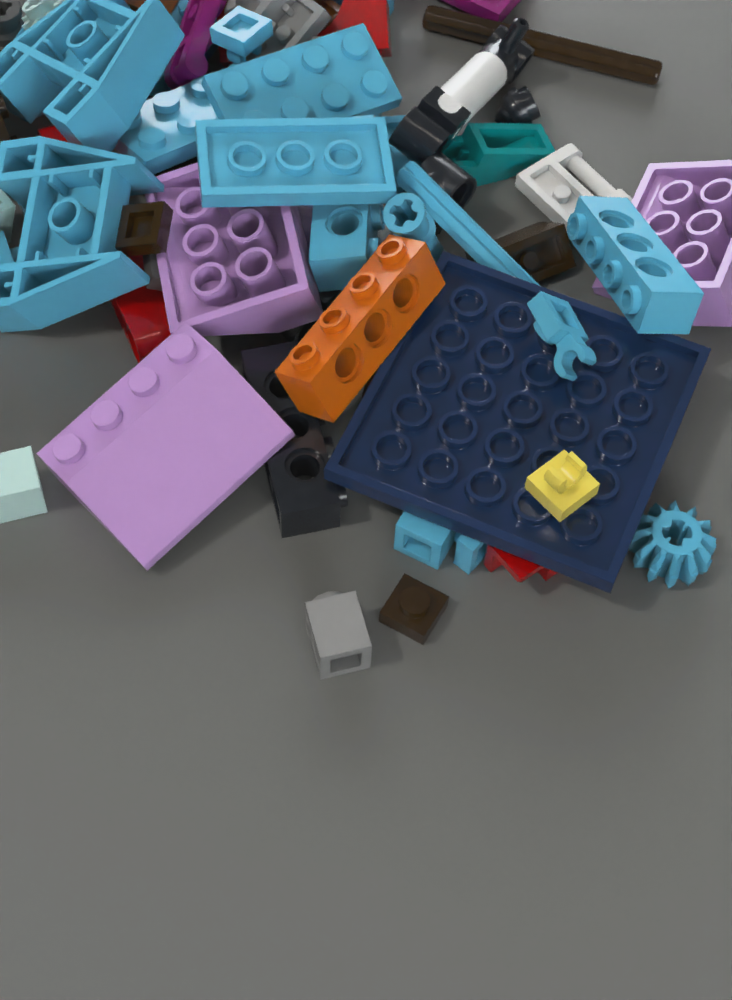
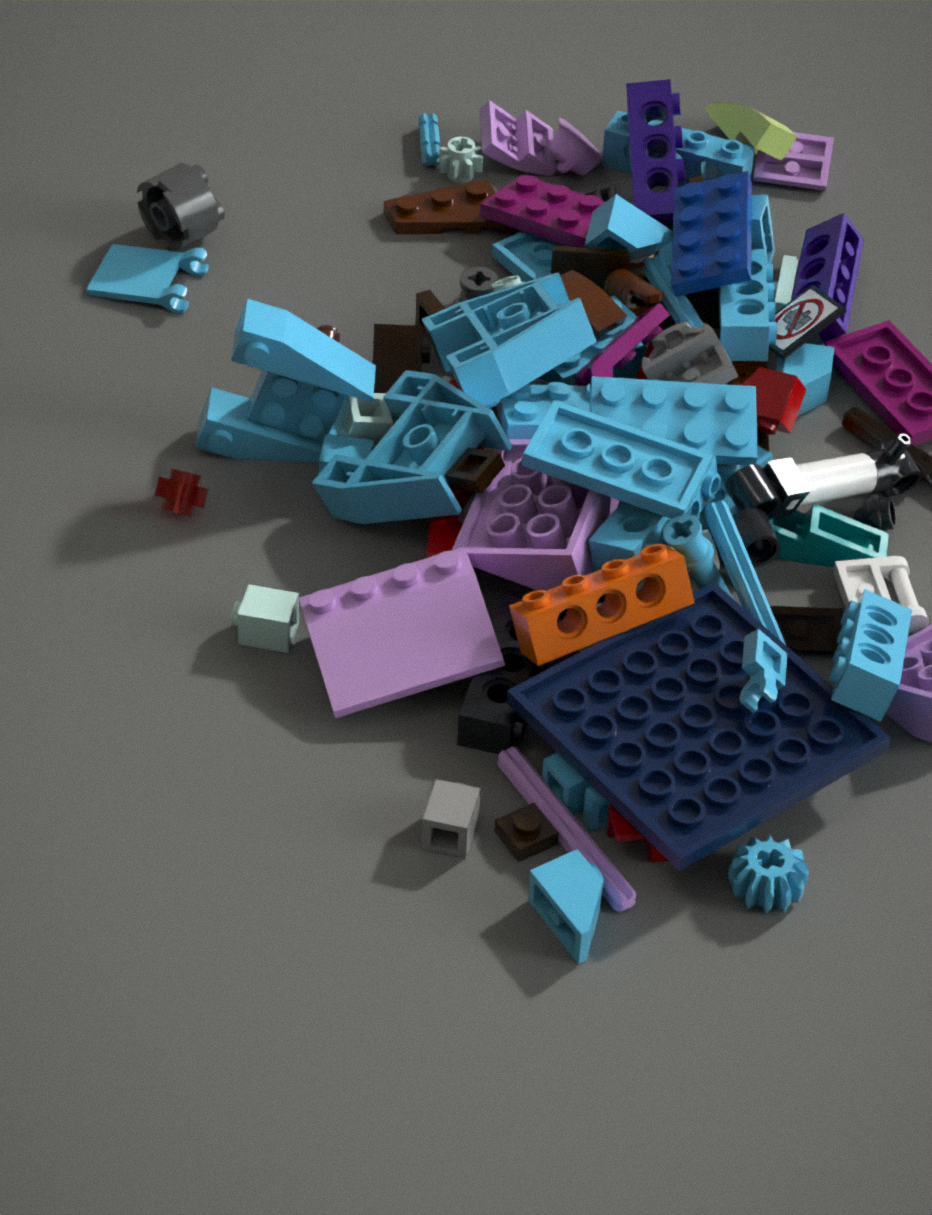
camera: 30 degrees right, 15 degrees down
(241, 33) = (651, 359): medium azure tile -> none
(461, 590) = (570, 832): none -> lavender axle
(514, 673) = (568, 900): none -> medium azure slope
(562, 484) = (686, 774): light yellow tile -> none

